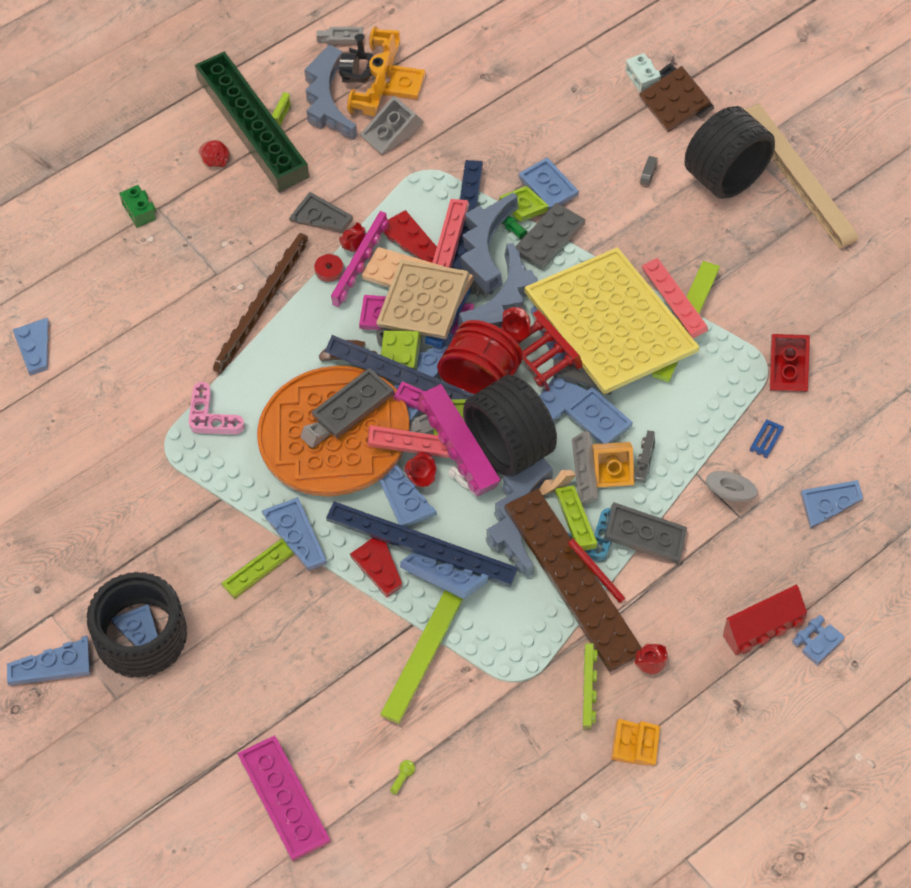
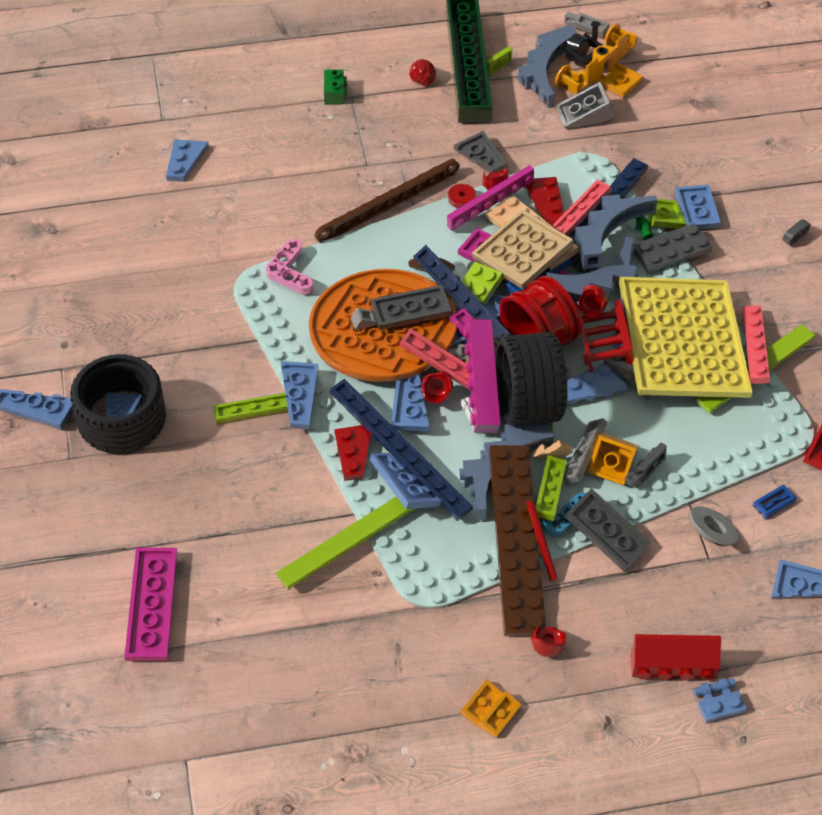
camera: 25 degrees right, 5 degrees down
(406, 769) = (272, 632): lime bar -> none
(590, 676) = (475, 635): lime wing -> none
(598, 417) = (624, 413): medium blue plate -> none

